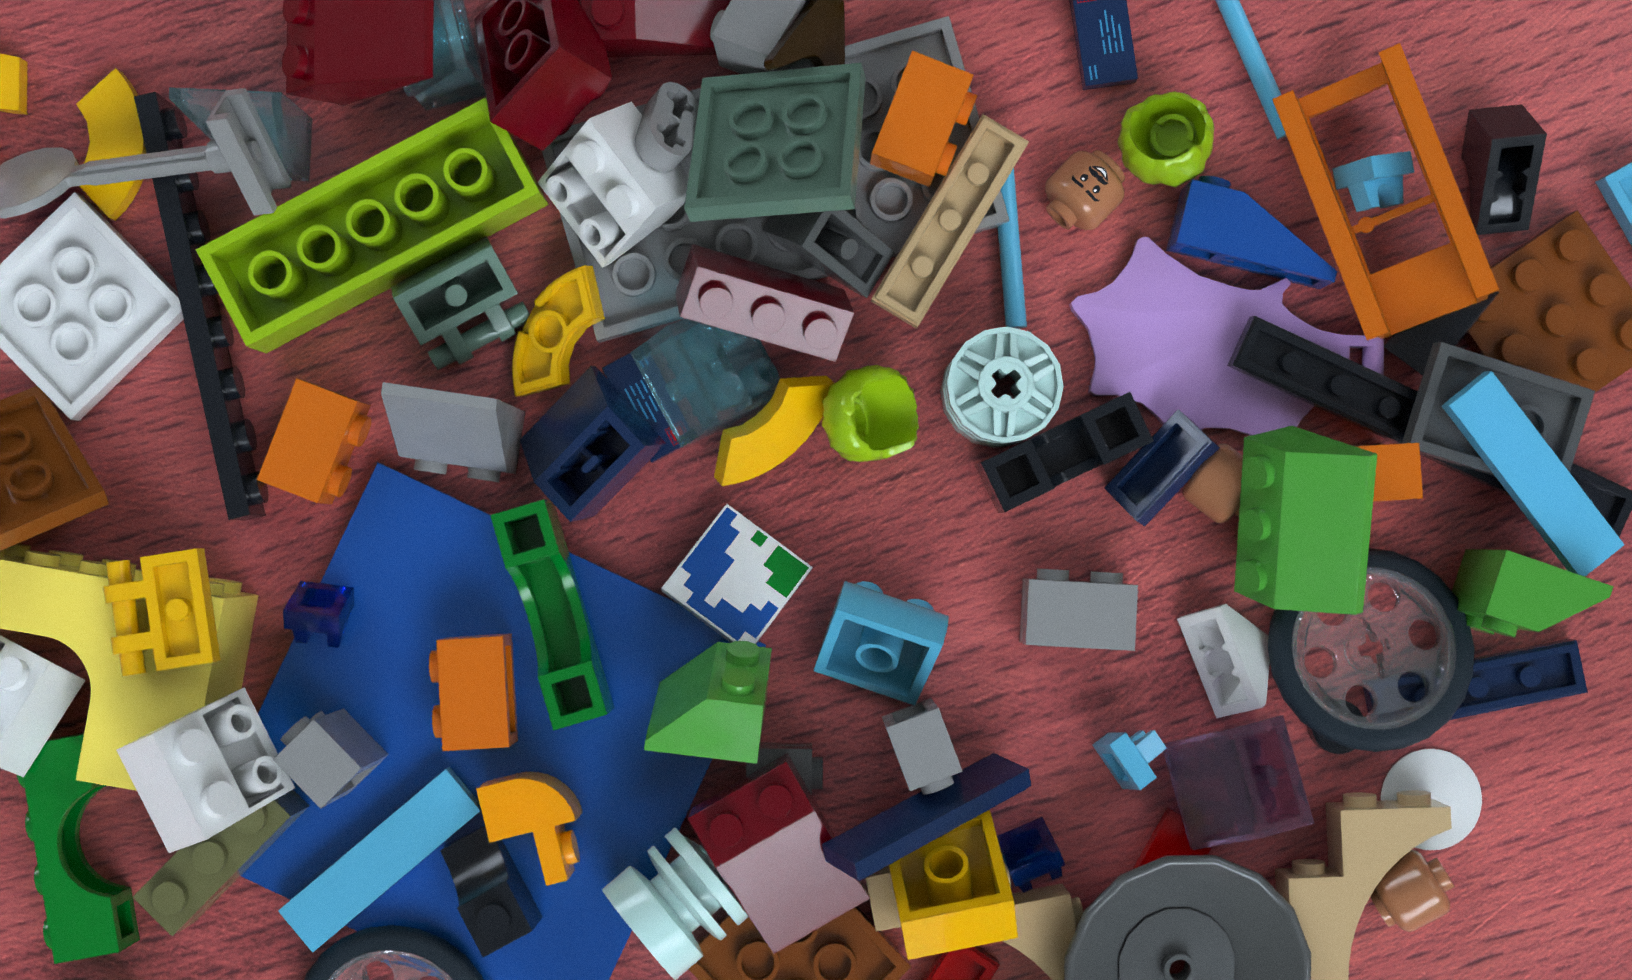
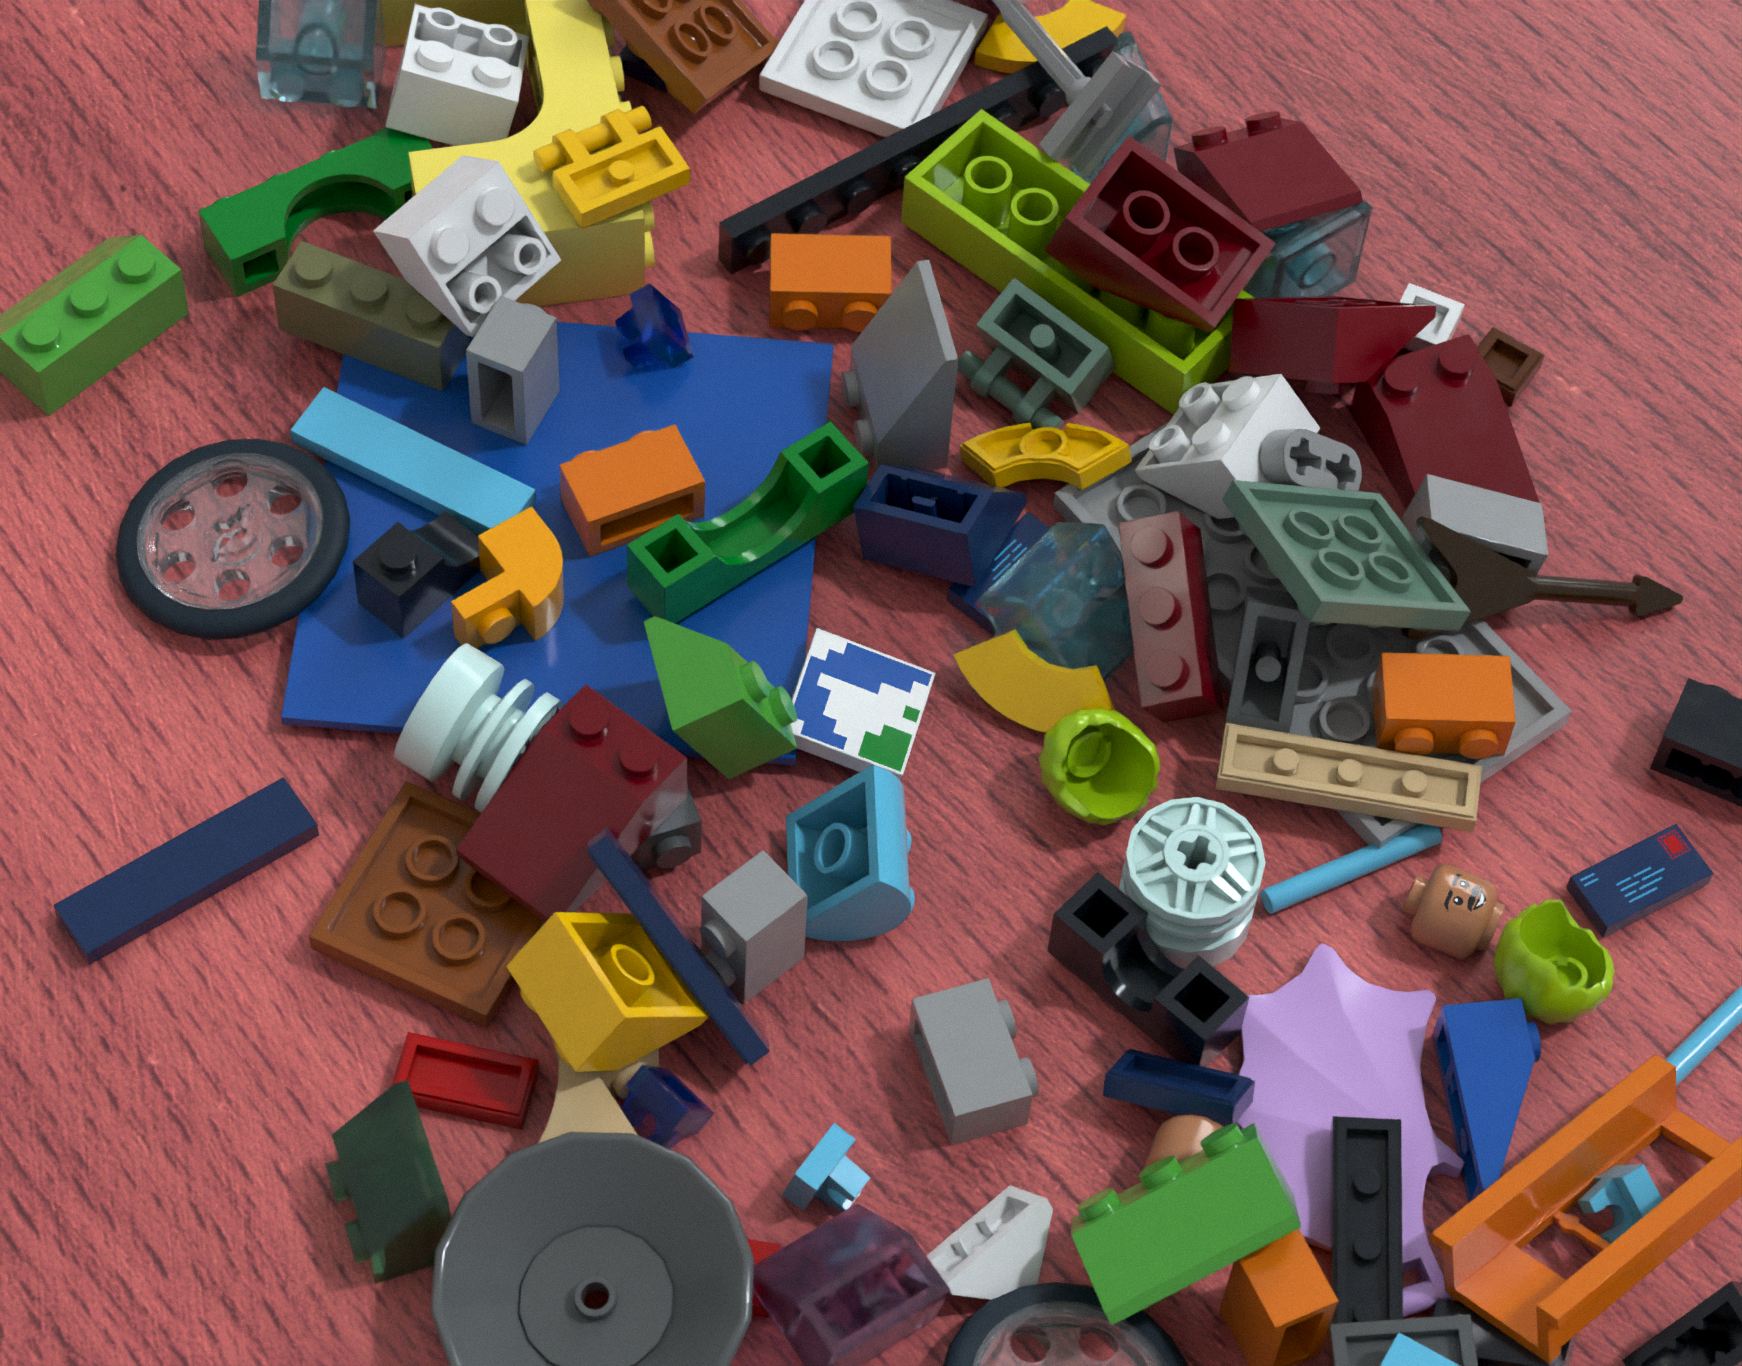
camera: 70 degrees right, 30 degrees down
(411, 160) = (1159, 240): none -> dark red slope

